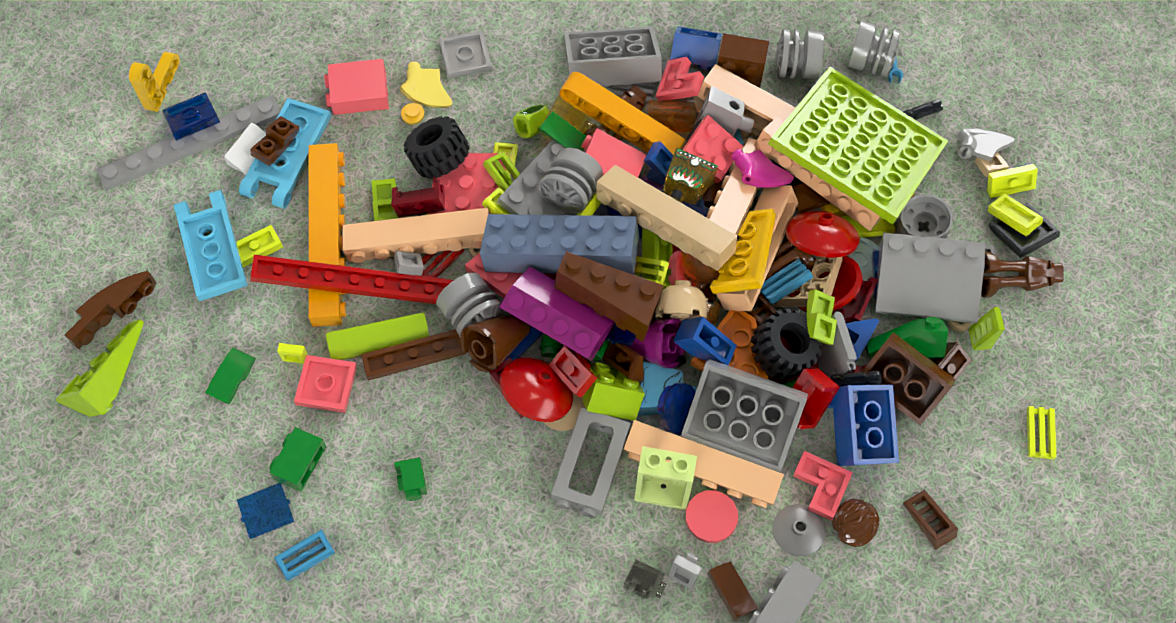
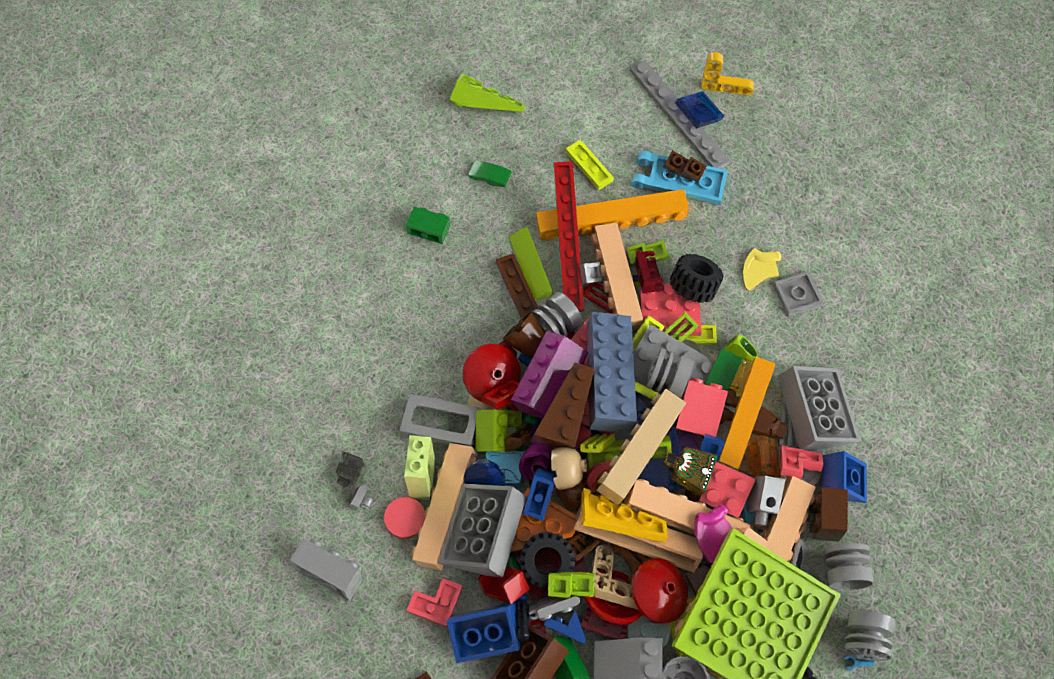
camera: 85 degrees right, 0 degrees up
(116, 298) = (539, 91): reddish brown slope -> none
(211, 258) = (582, 142): medium azure hinge -> none
(239, 154) = (681, 148): white slope -> none
(265, 510) = (391, 213): clear blue piece -> none
(292, 353) = (509, 208): neon yellow tile -> none
(310, 563) = (368, 253): dark azure tile -> none
(325, 383) = (489, 234): coral plate -> none
(357, 86) = (748, 217): coral brick -> none
(411, 478) = (418, 300): green brick -> none
(412, 113) = (732, 261): yellow plate -> none
(732, 590) = (346, 535): reddish brown slope -> none
(785, 281) = (612, 559): dark azure tile -> none
(794, 541) = (400, 597): light grey dish -> none
(856, 522) = (405, 630): reddish brown hair -> none

